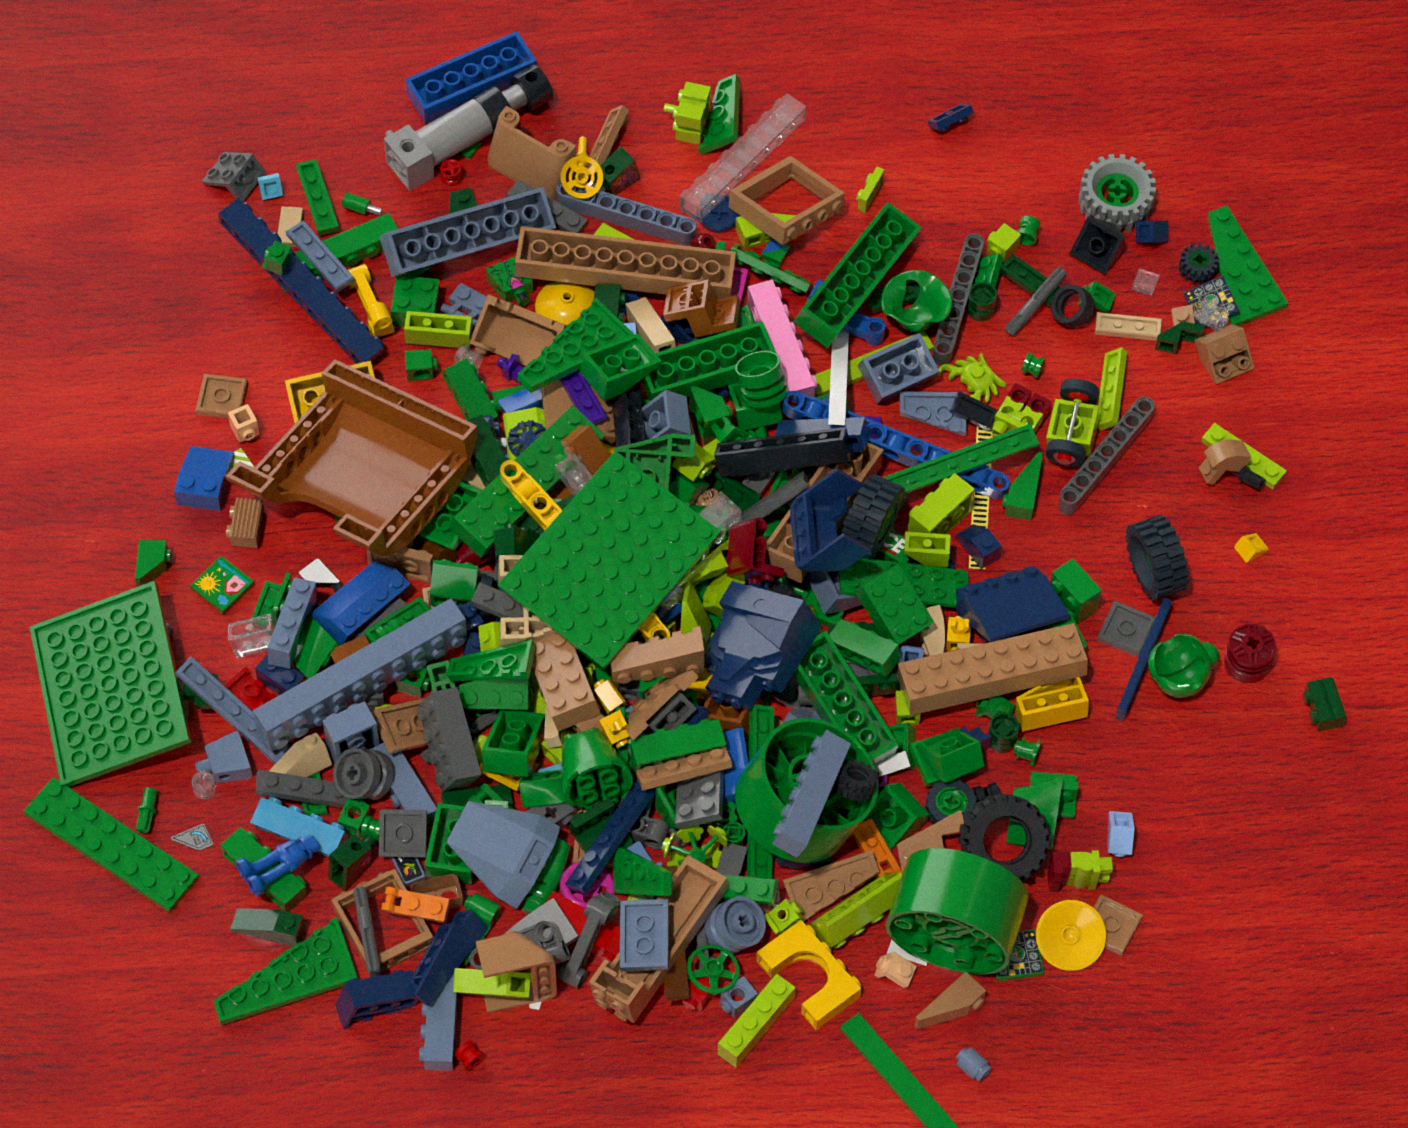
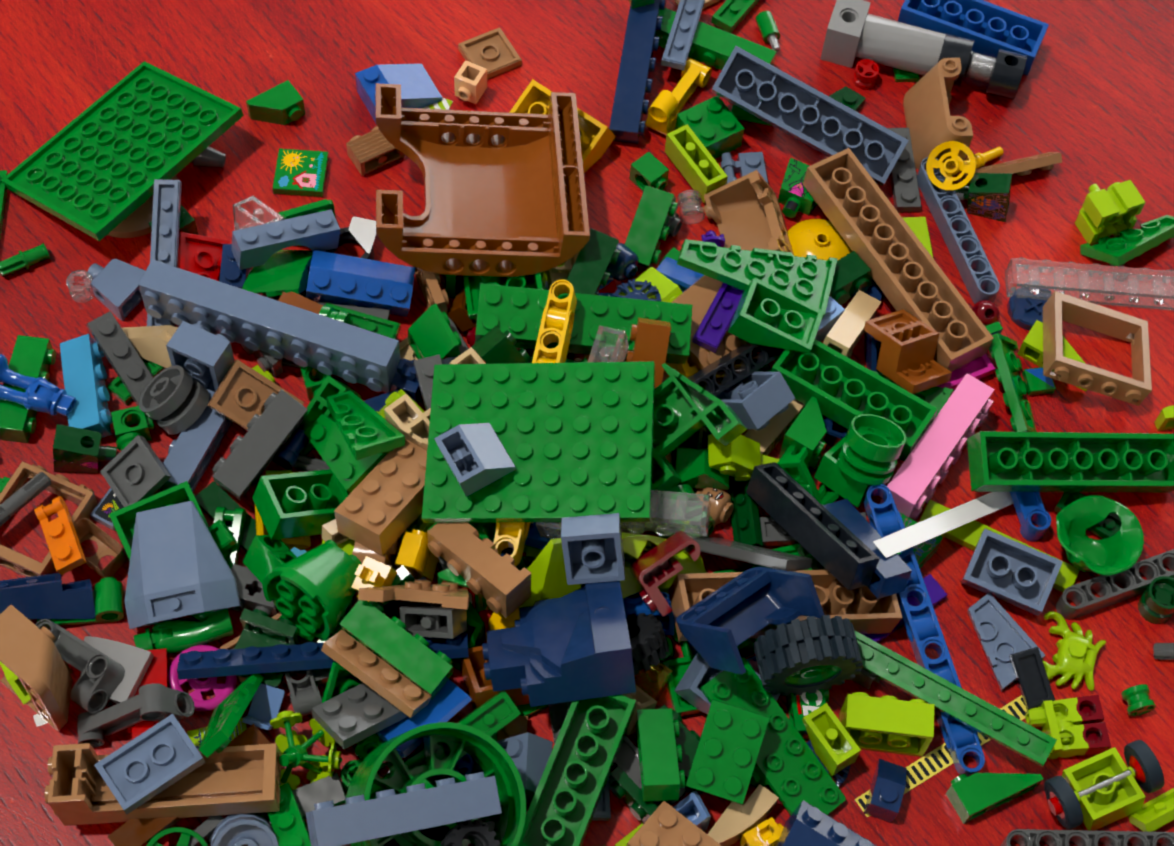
camera: 50 degrees right, 0 degrees up
(195, 837) = (25, 316): light grey sticker -> none
(595, 602) = (474, 455): none -> sand blue slope
(710, 580) = (593, 549): none -> sand blue brick

